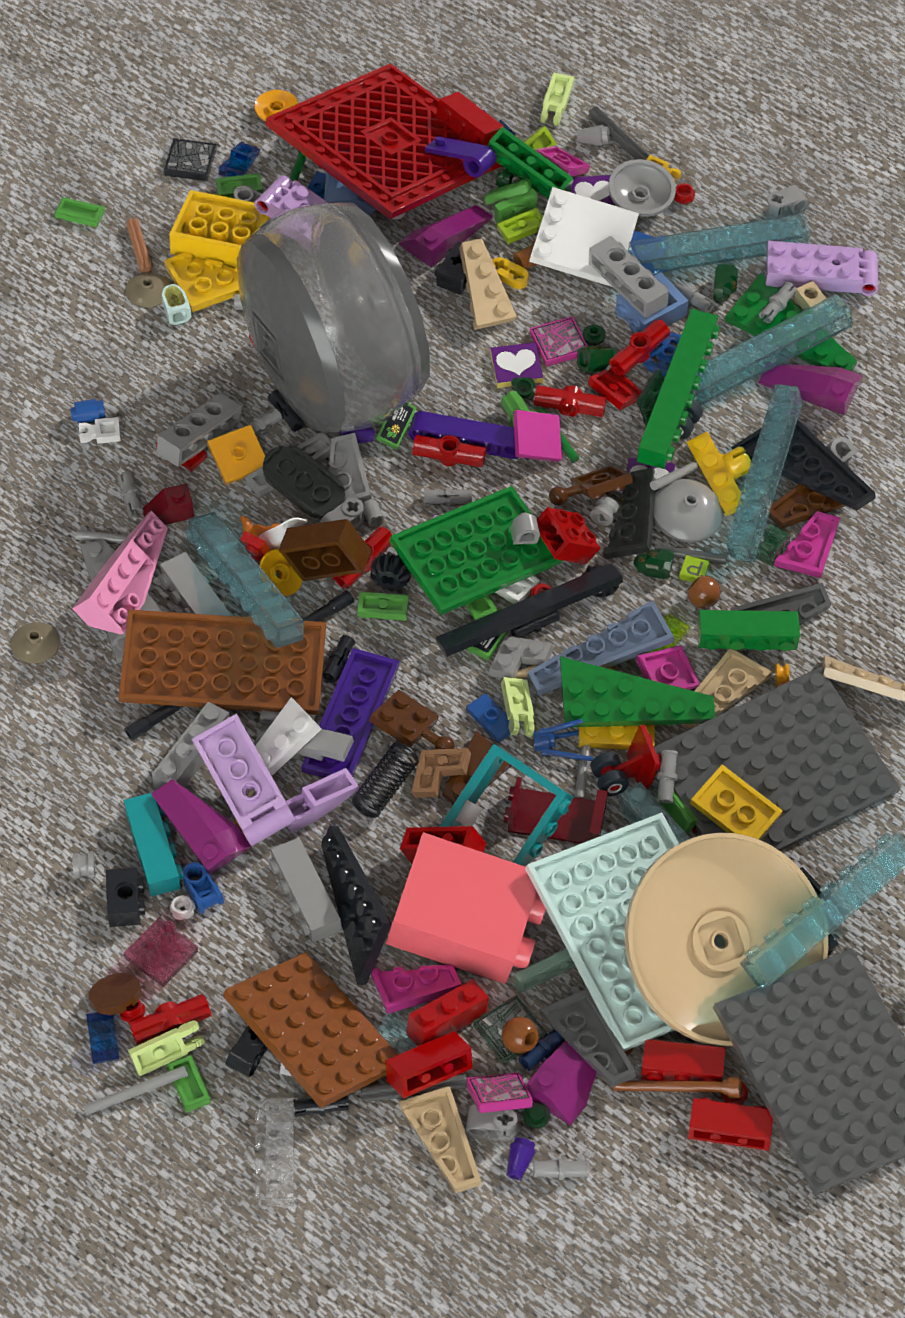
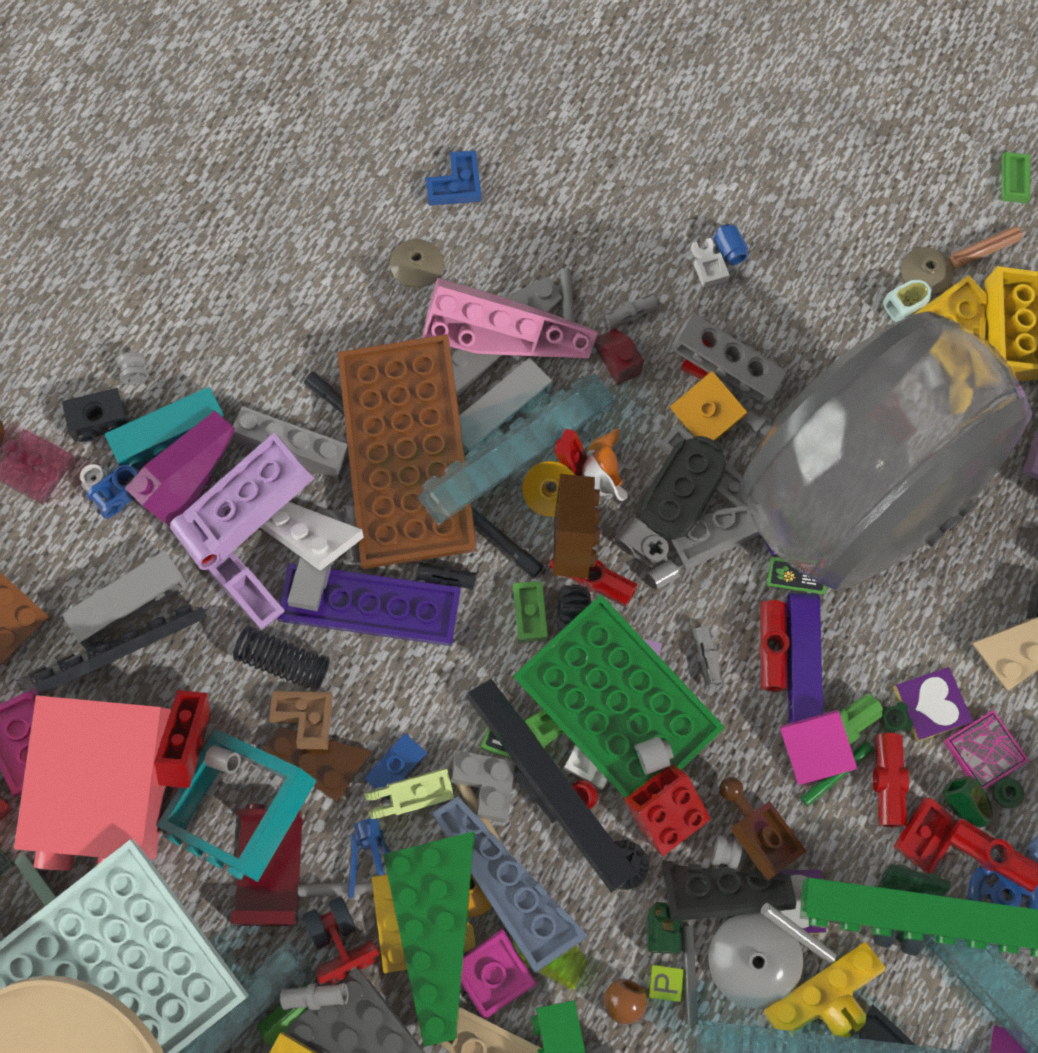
camera: 75 degrees right, 15 degrees up
(408, 721) = (368, 667): reddish brown plate -> none

